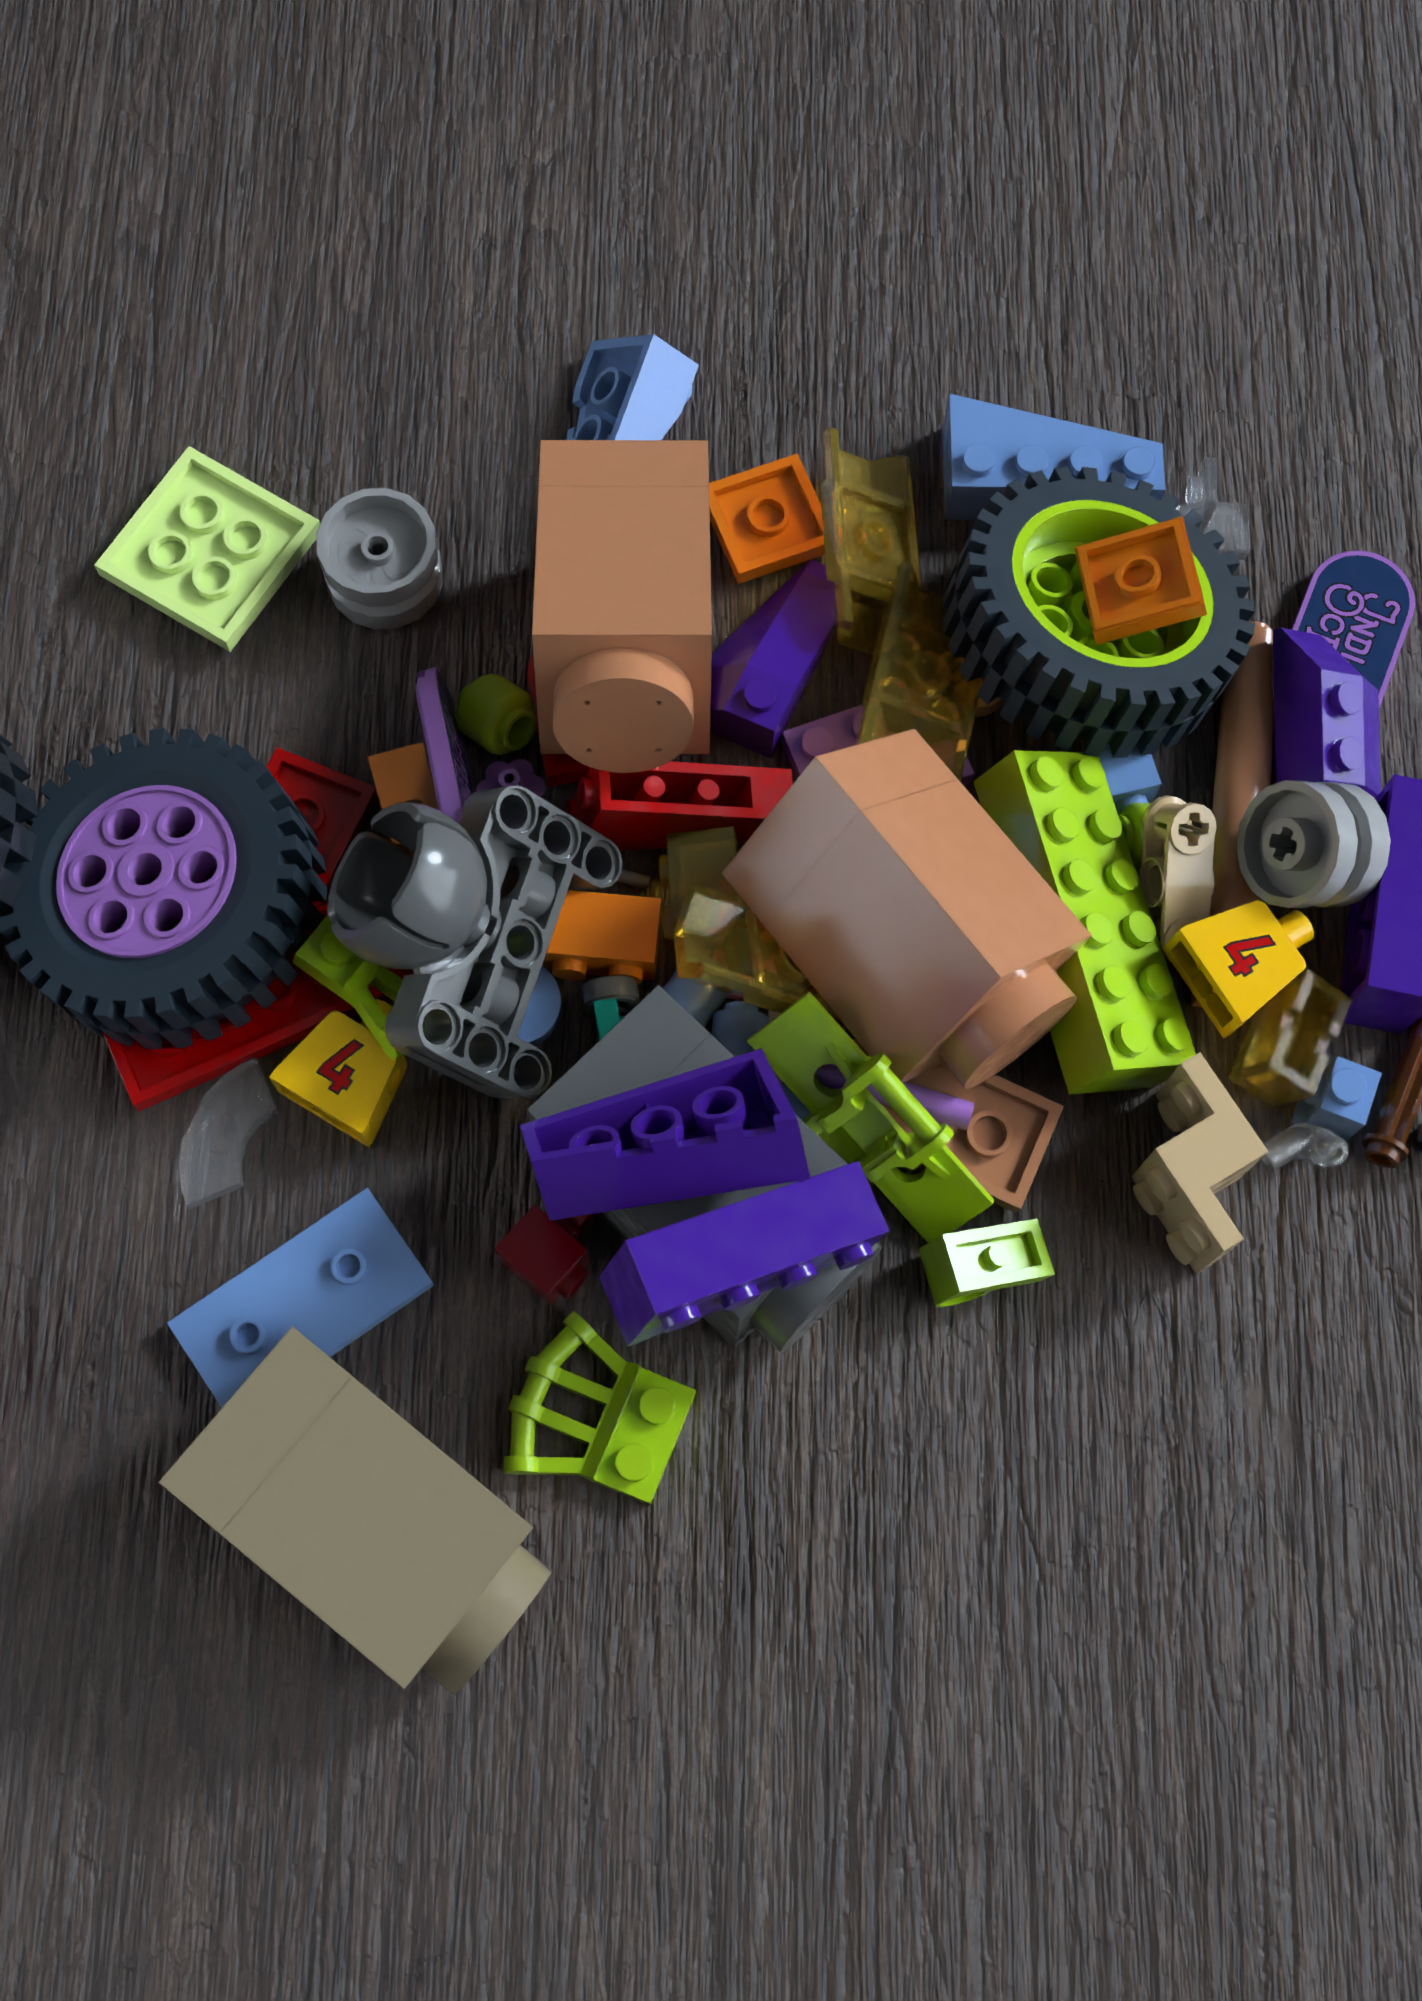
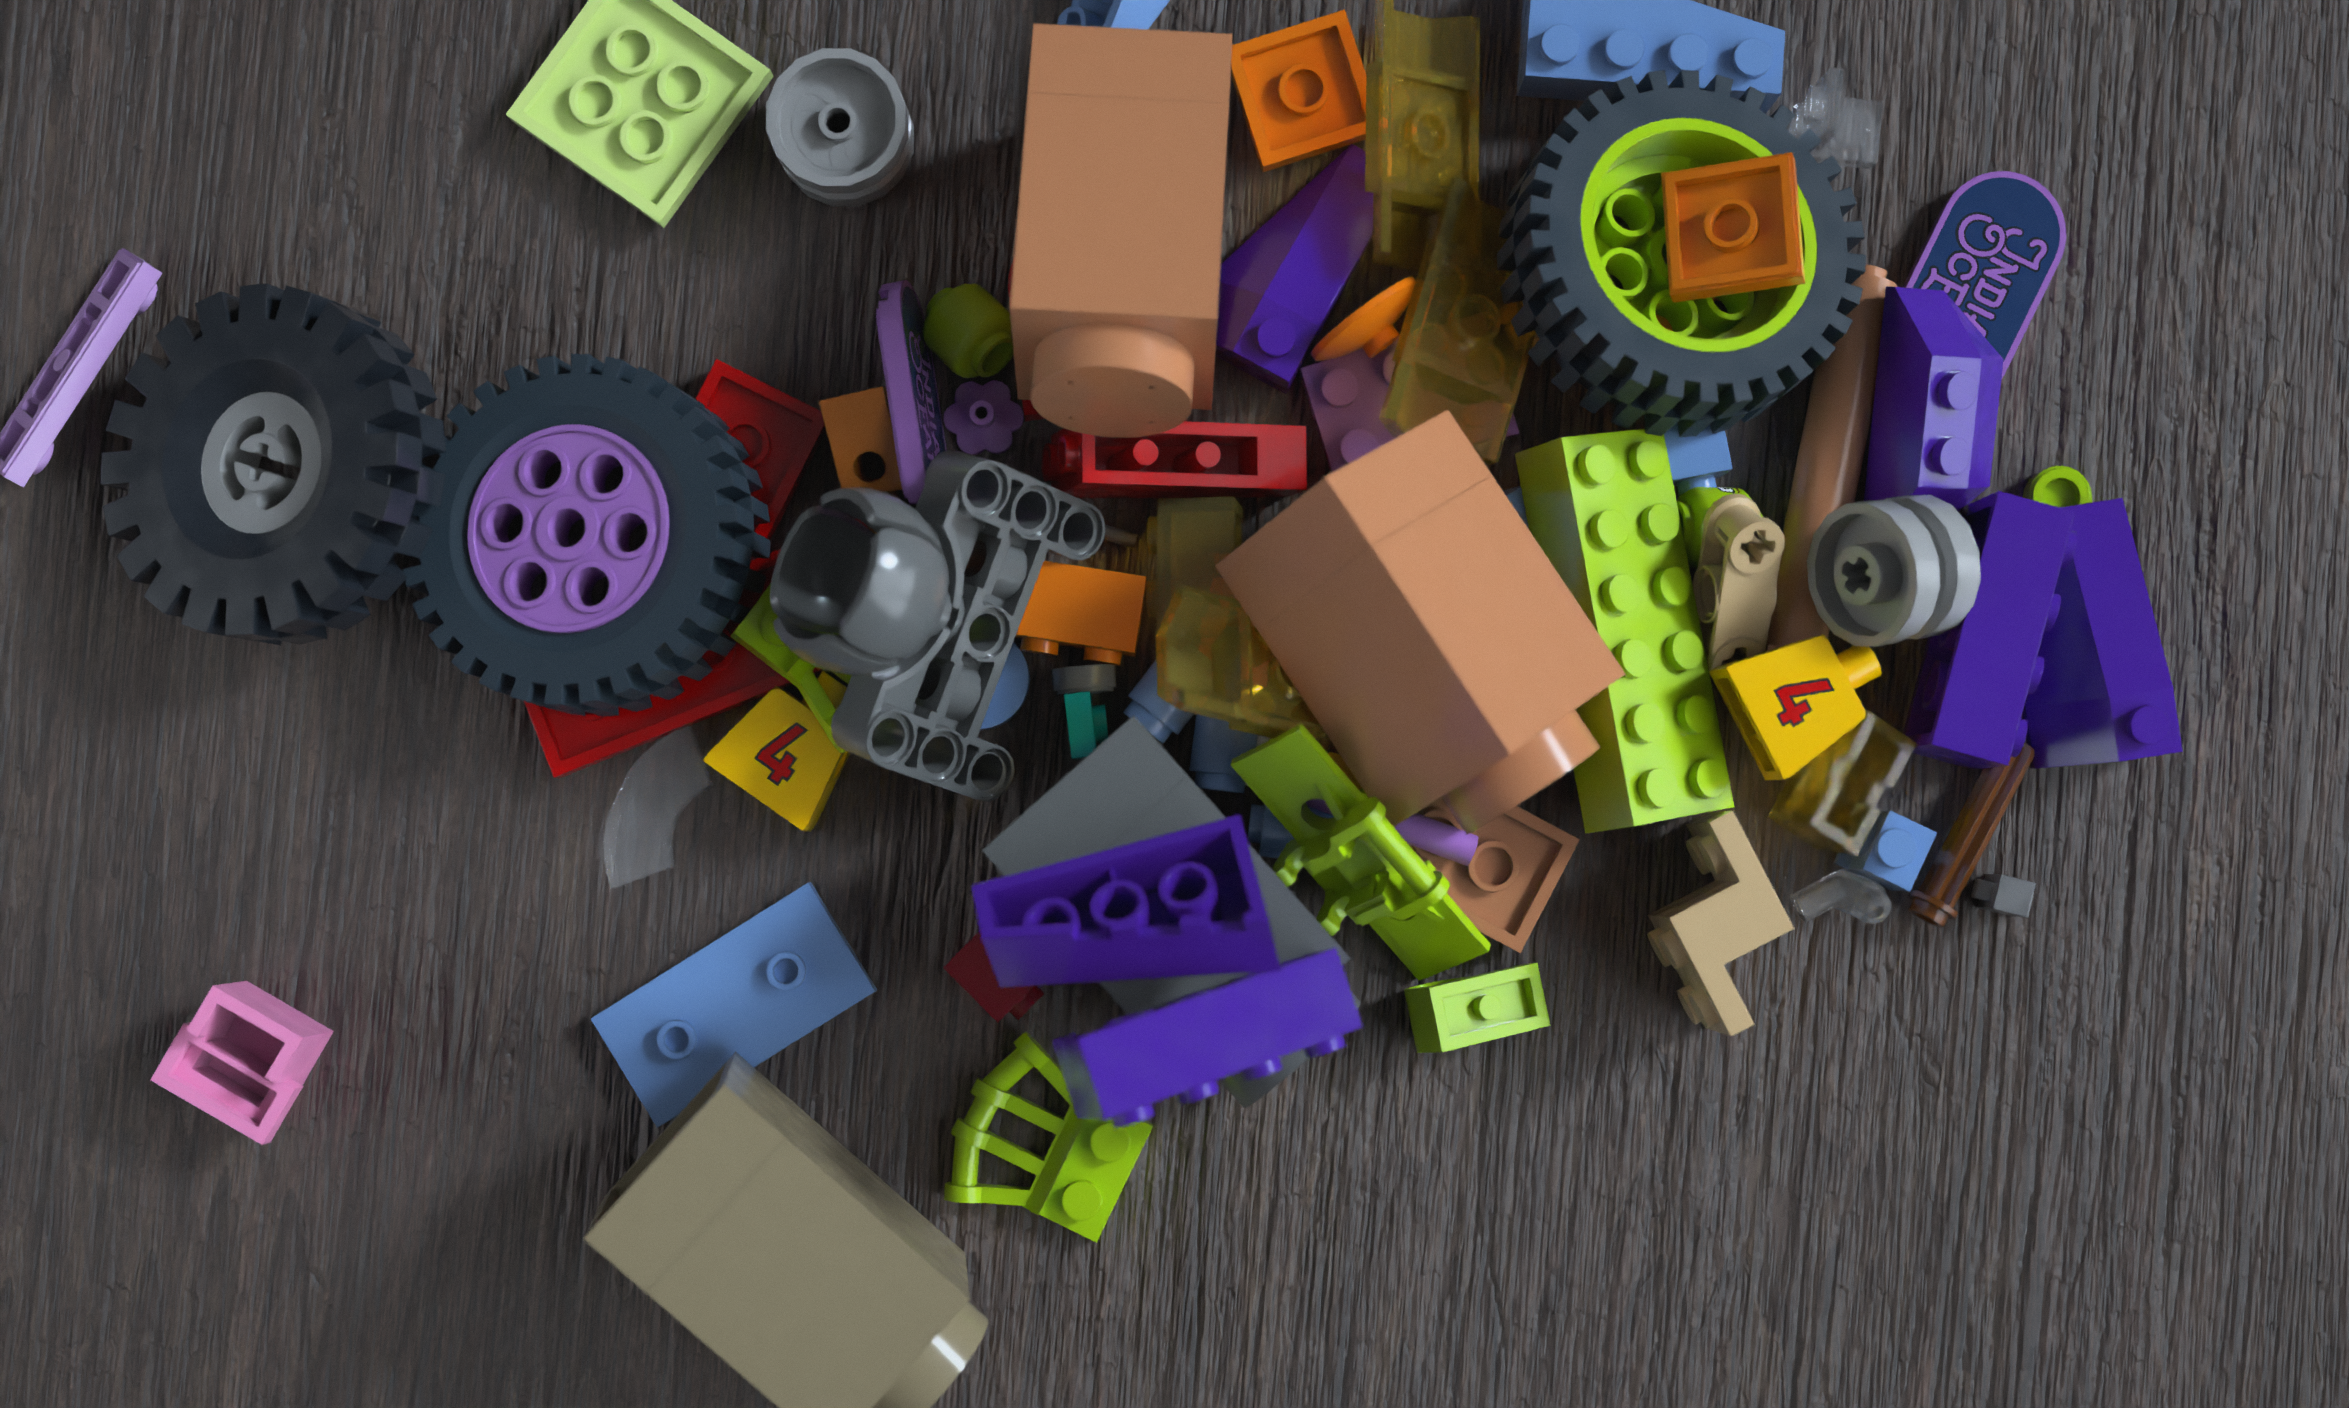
camera: 10 degrees right, 15 degrees up
(835, 684) = (1369, 325): none -> orange dish

